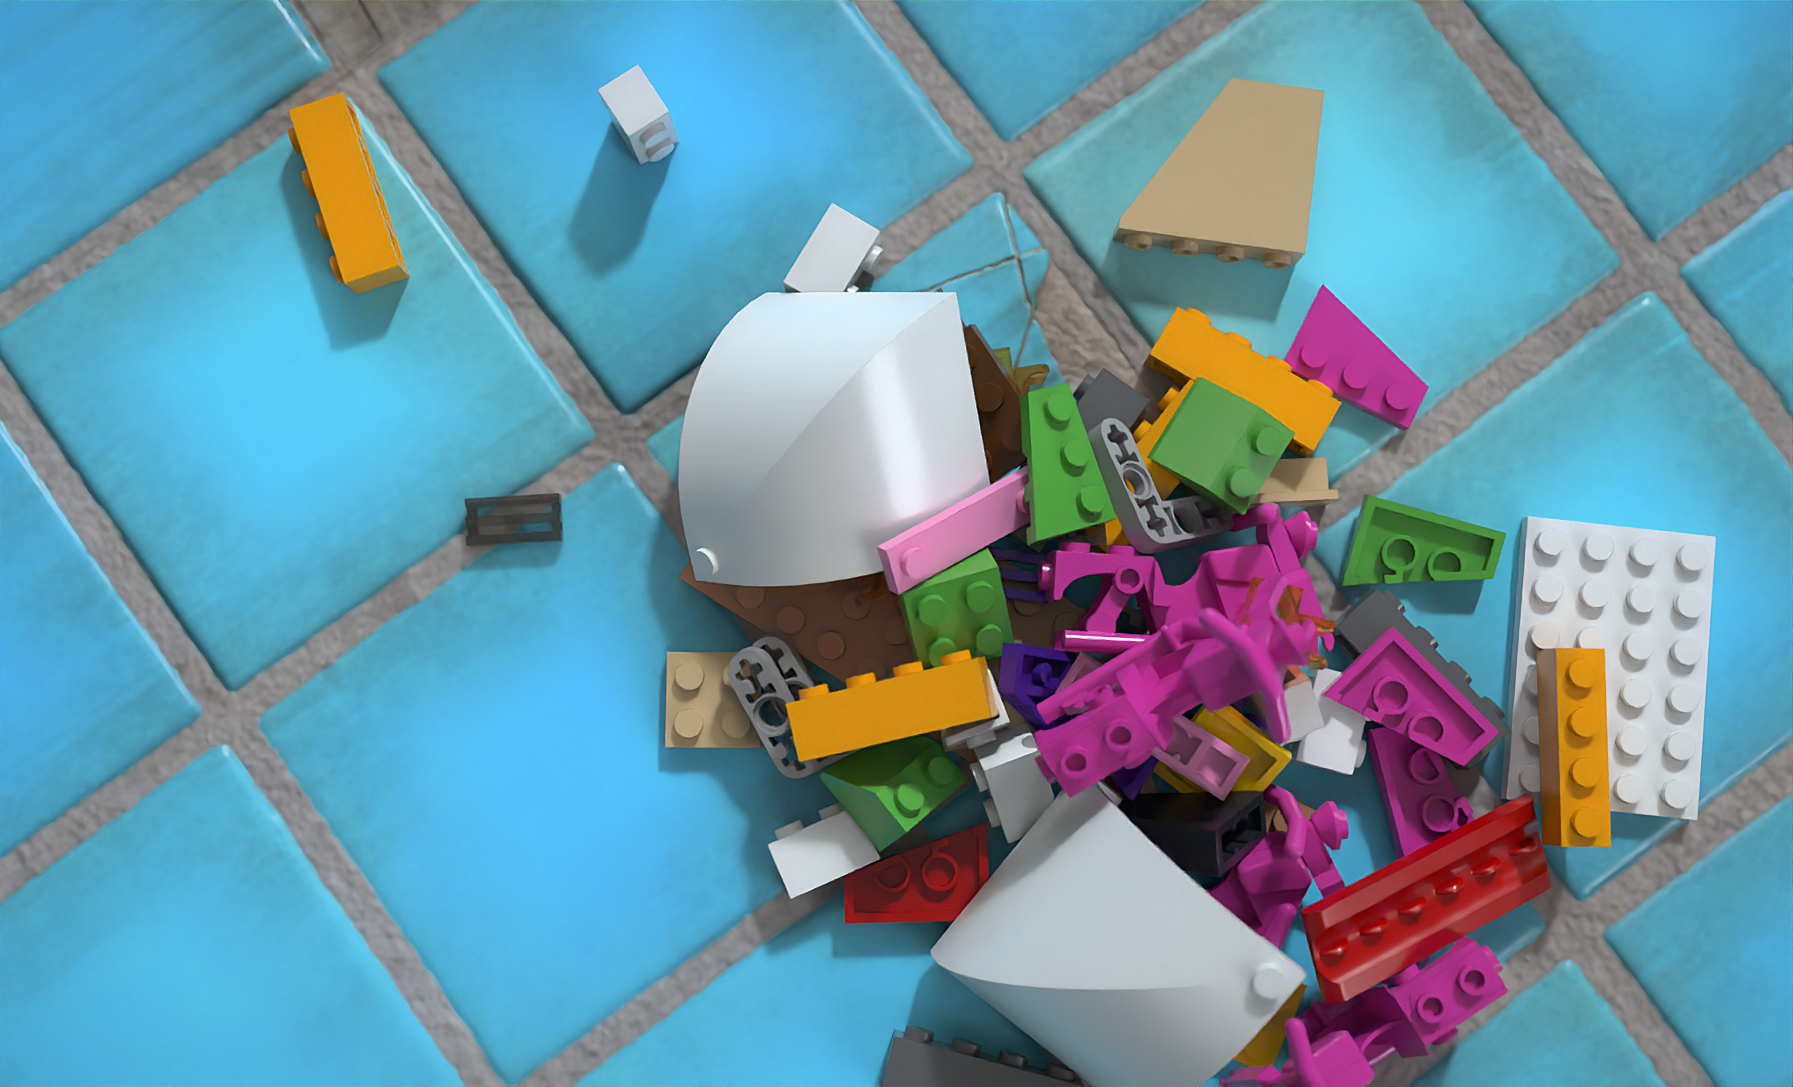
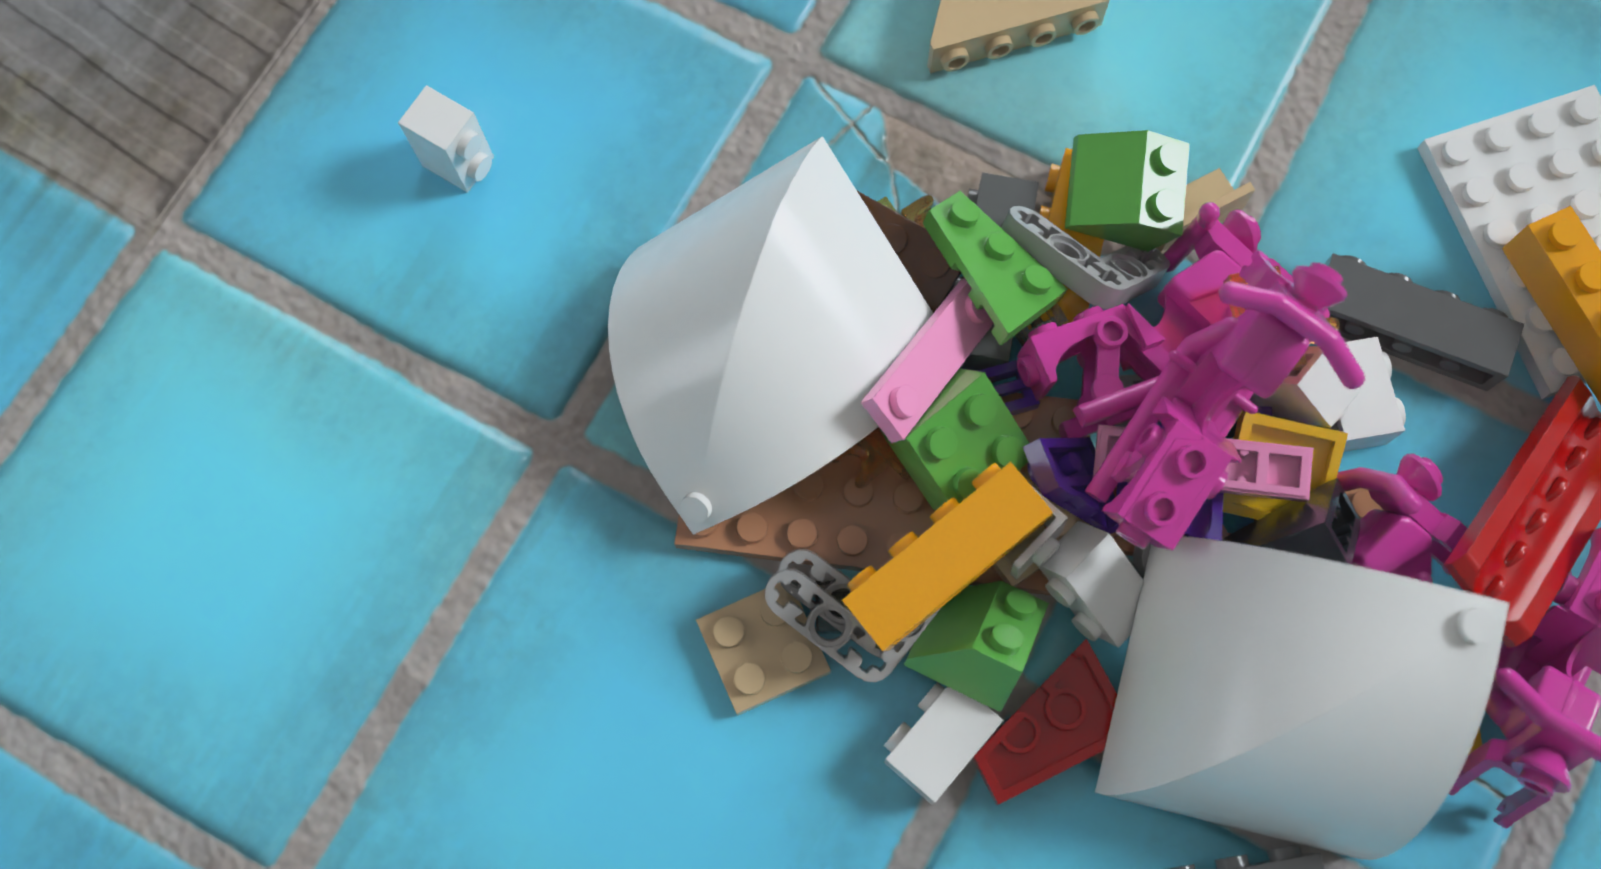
camera: 20 degrees left, 10 degrees down
(347, 194) = (197, 331): light orange brick -> none
(473, 520) = (478, 547): clear smoke tile -> none
(835, 255) = (685, 181): white brick -> none
(1196, 349) = (1050, 122): light orange brick -> none
(1354, 363) = (1197, 82): dark pink wing -> none
(1410, 696) = (1422, 331): dark pink wing -> none
(1415, 791) = (1463, 422): dark pink wing -> none
(1416, 545) = (1342, 206): bright green wing -> none

